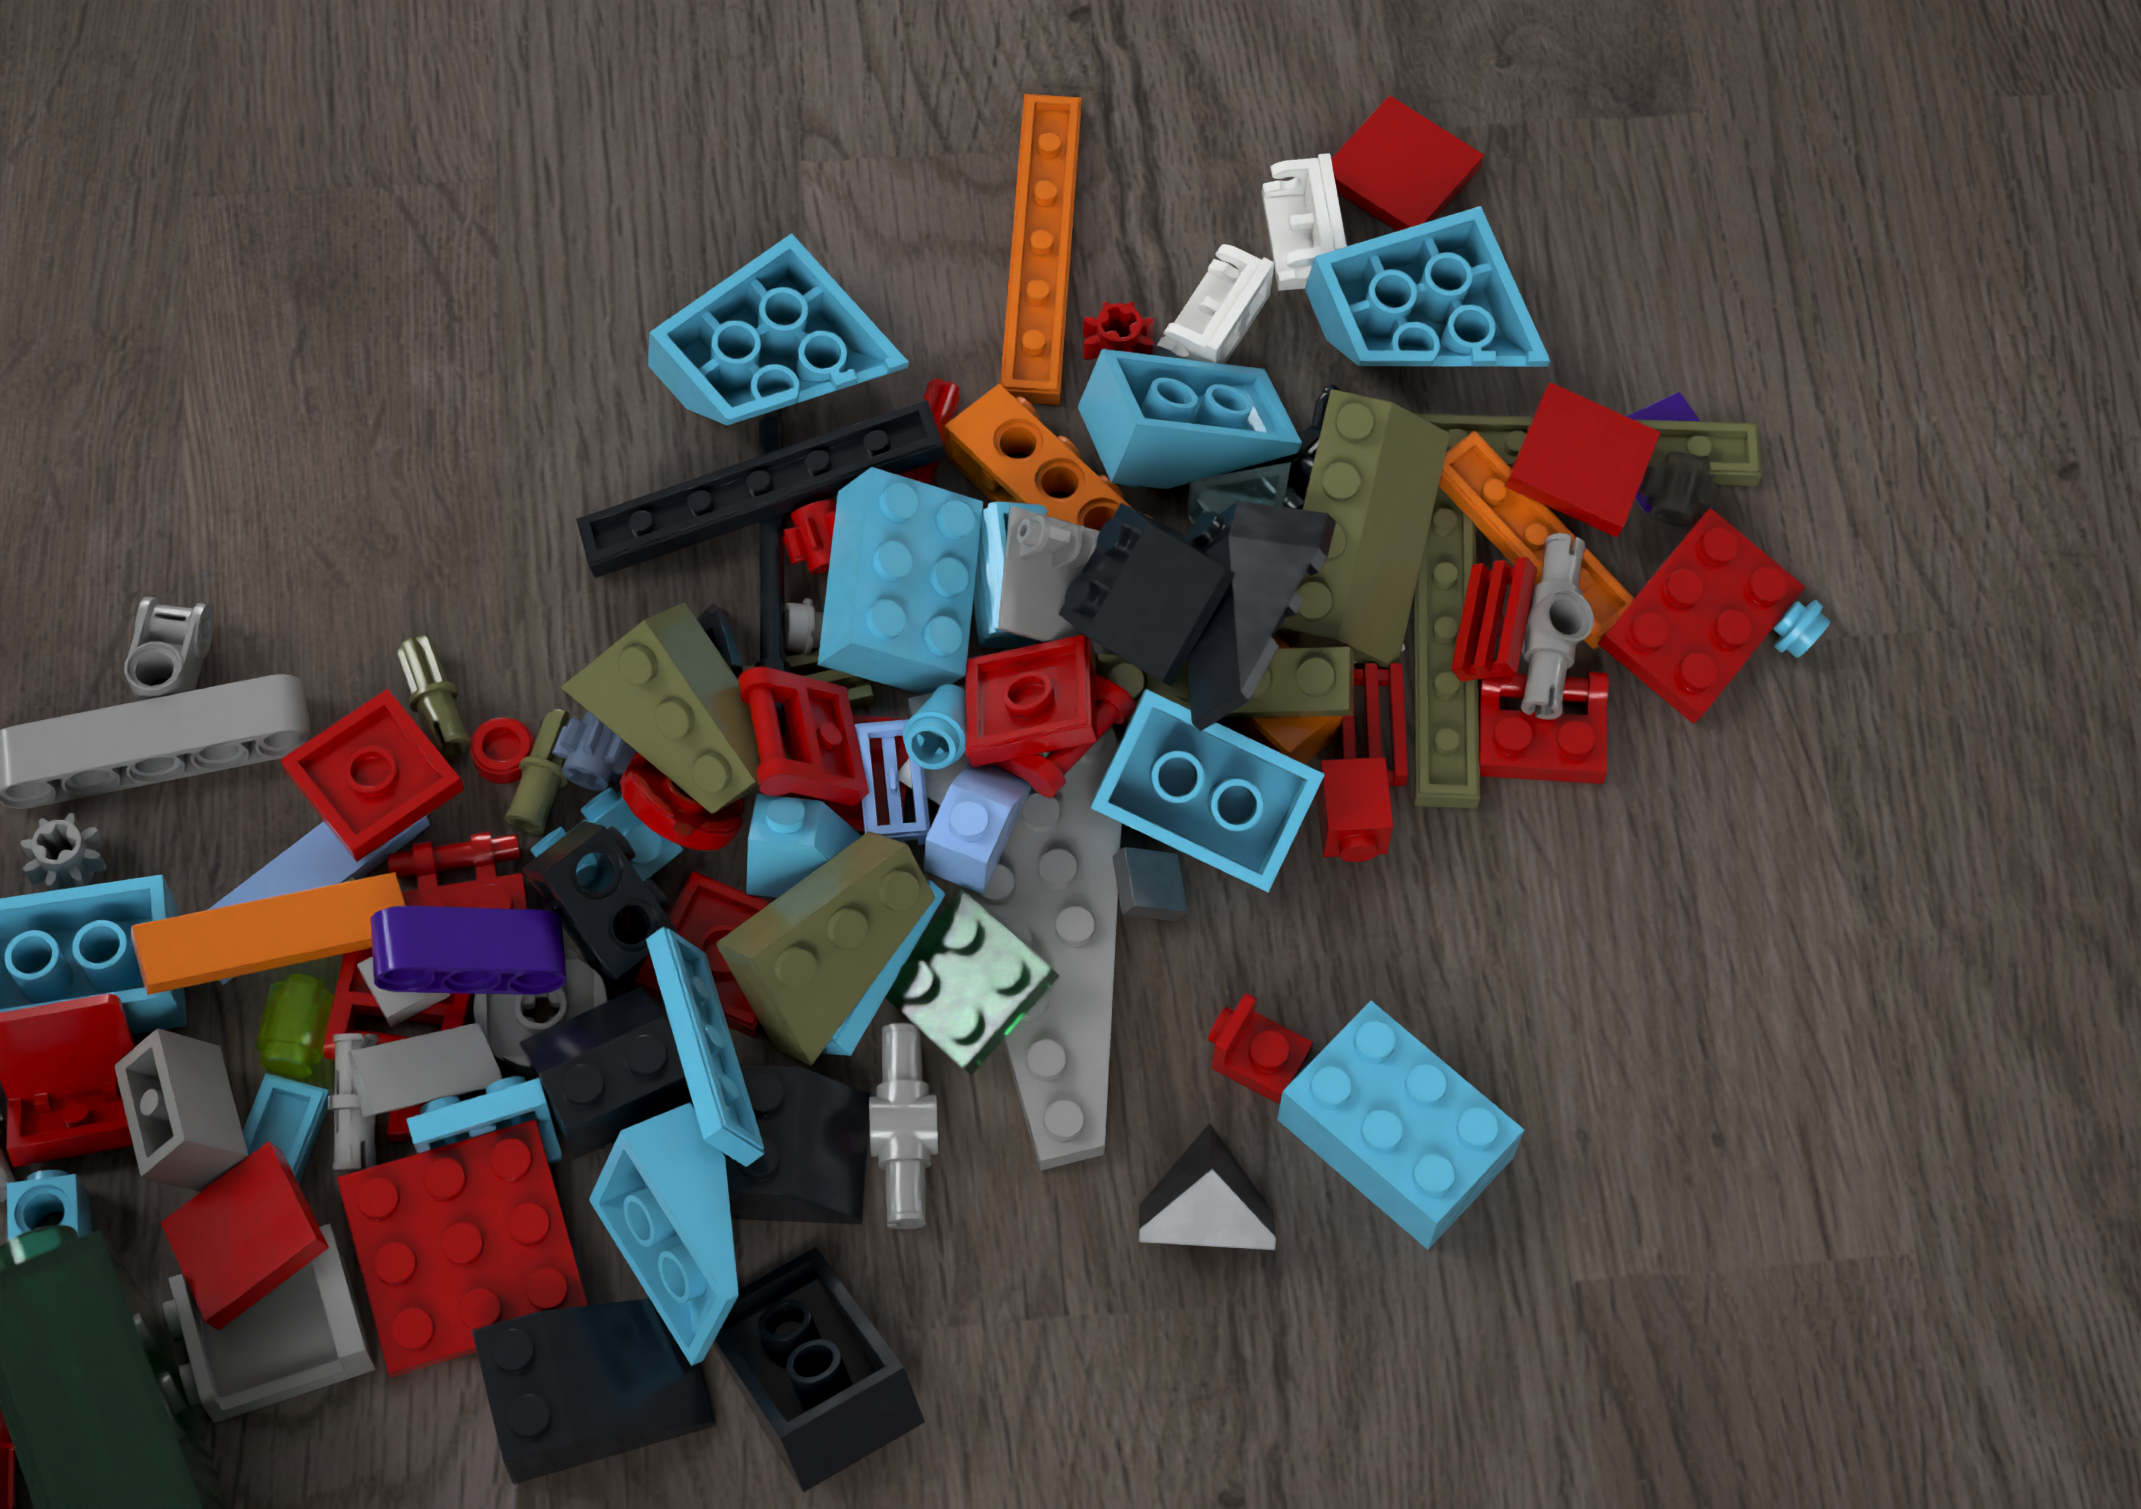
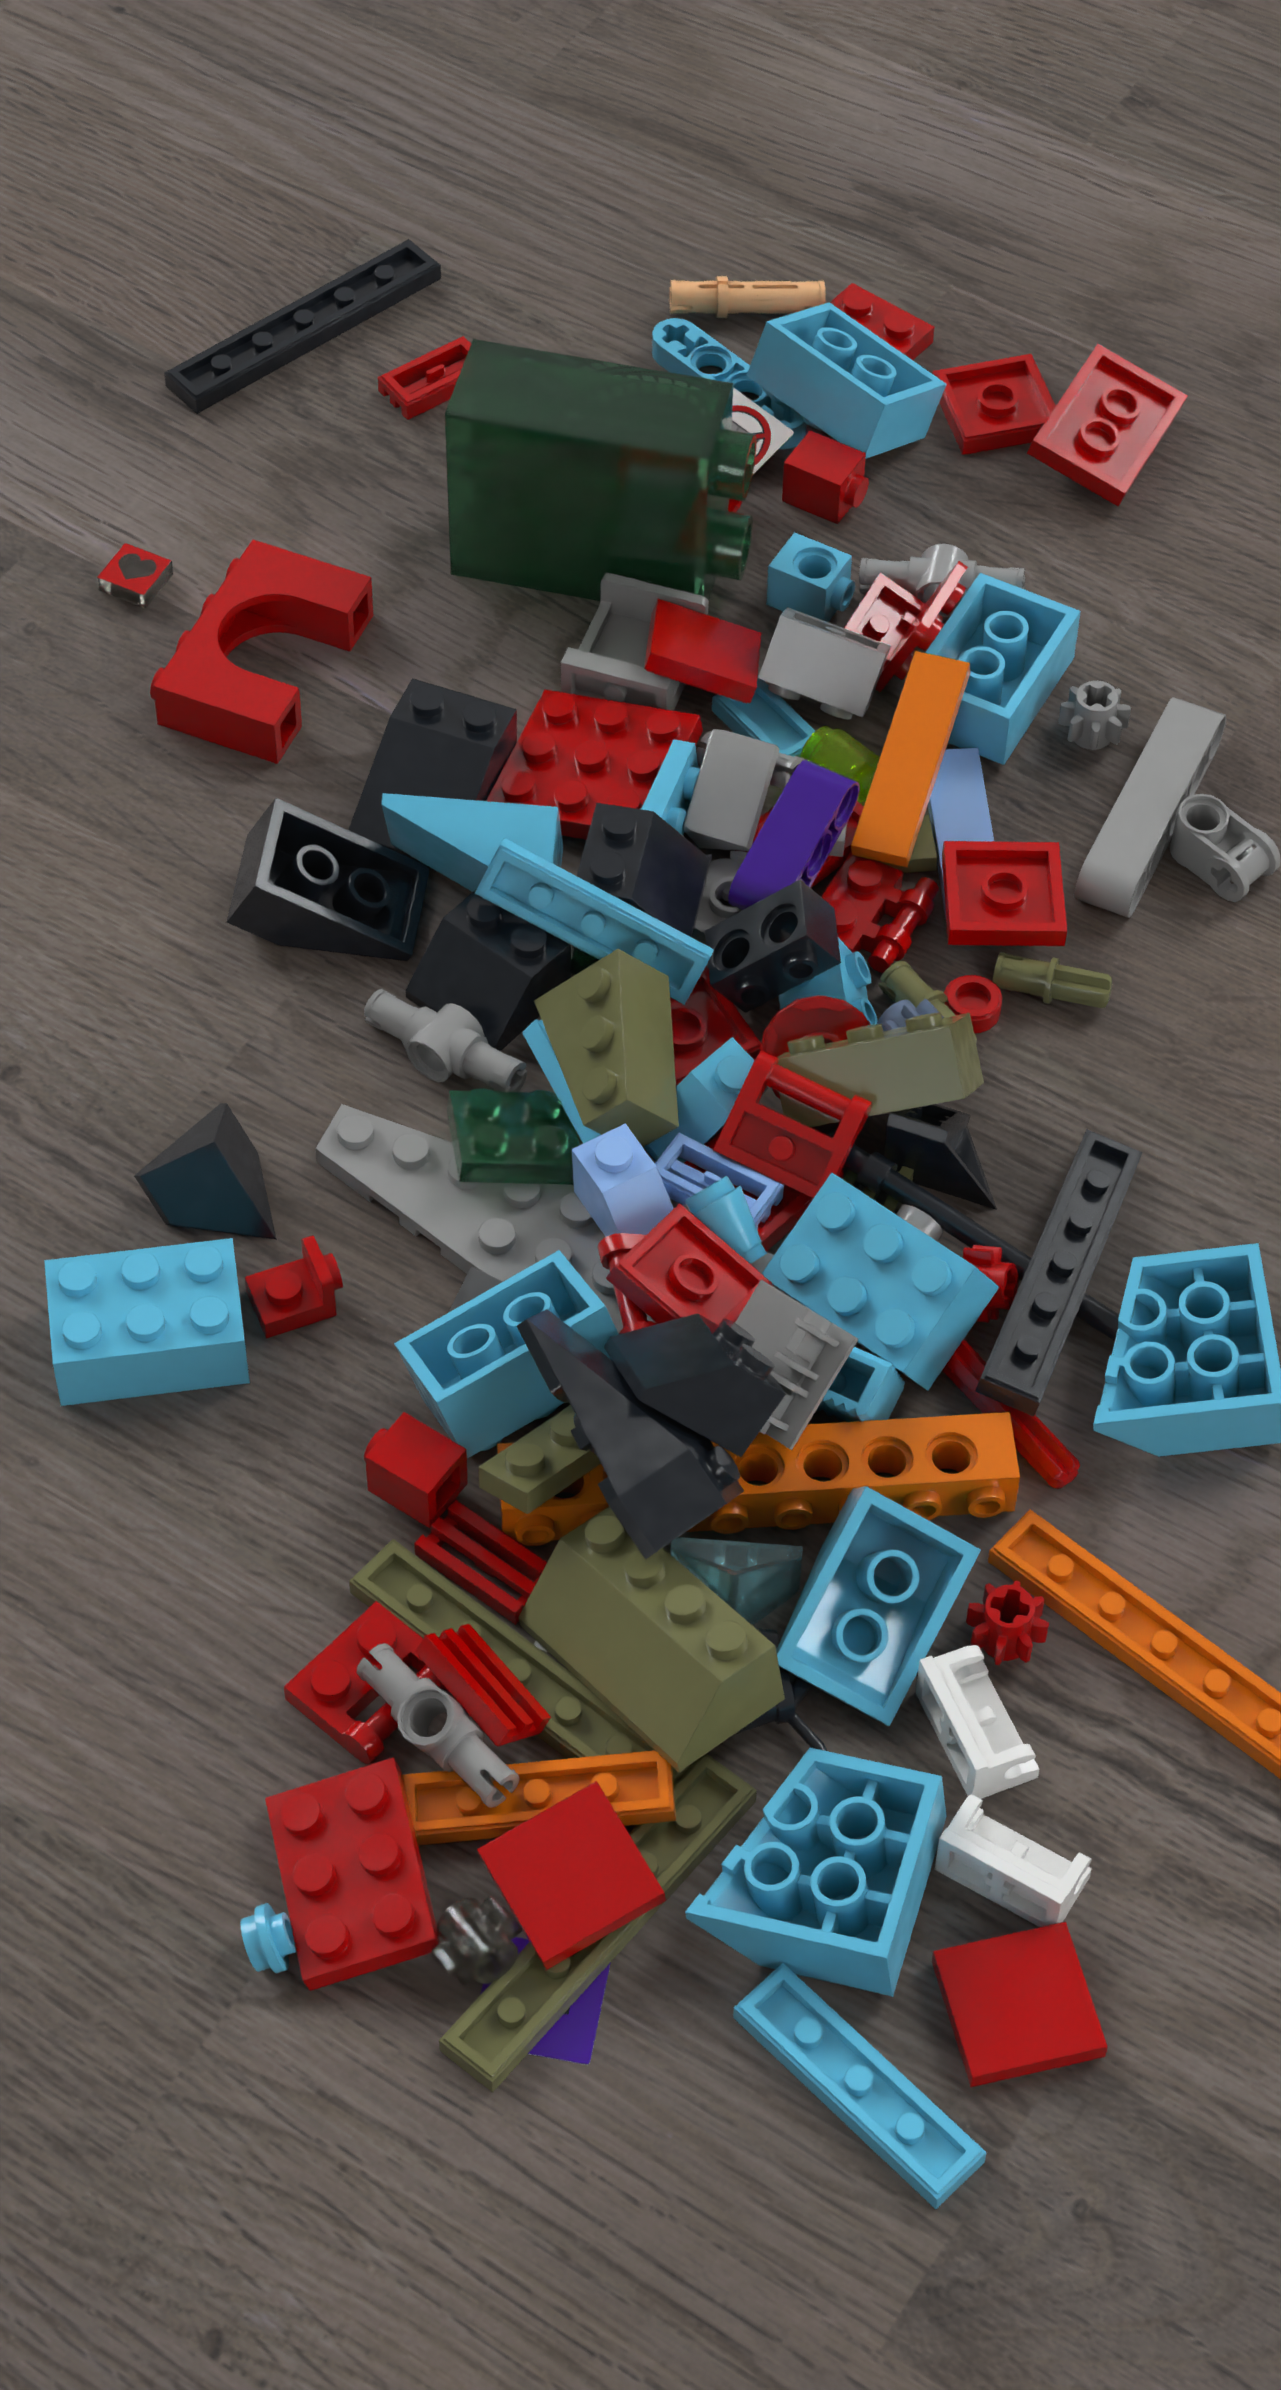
camera: 130 degrees right, 10 degrees down
(1547, 220) = (859, 2085): none -> medium azure tile

